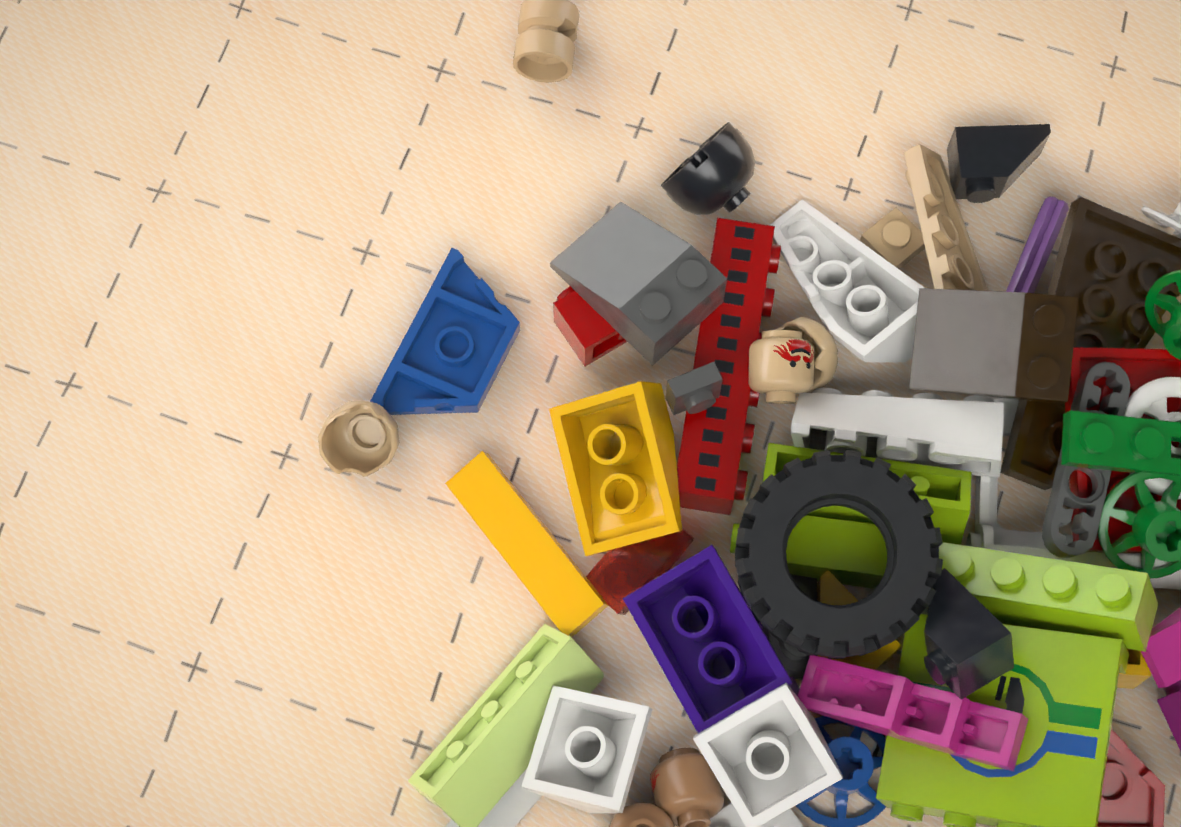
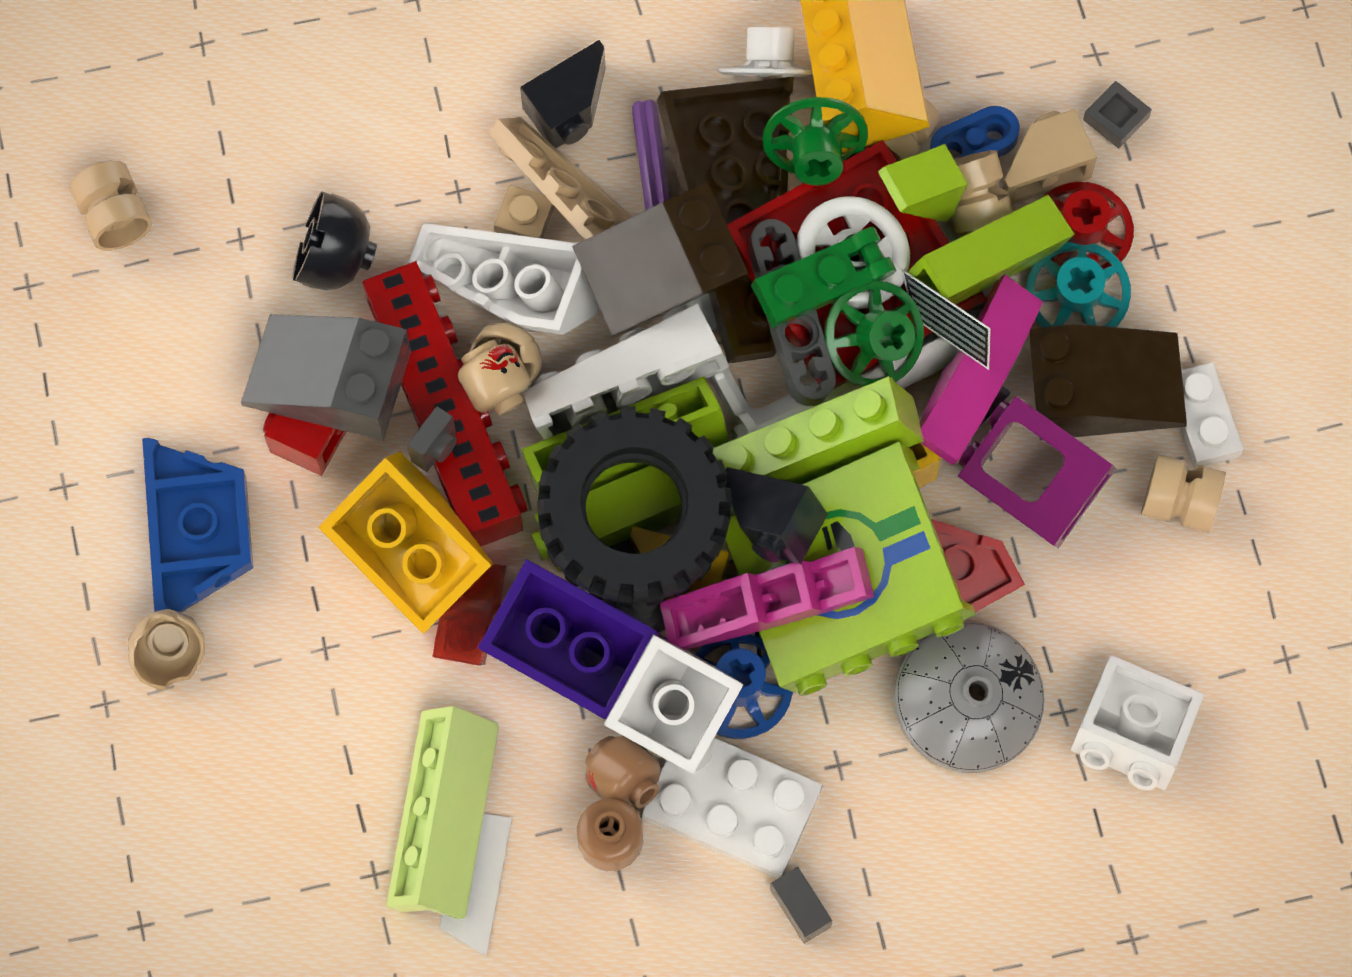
camera: 30 degrees left, 0 degrees up
(526, 544) = (365, 653): yellow tile -> none
(587, 750) = (522, 790): white slope -> none

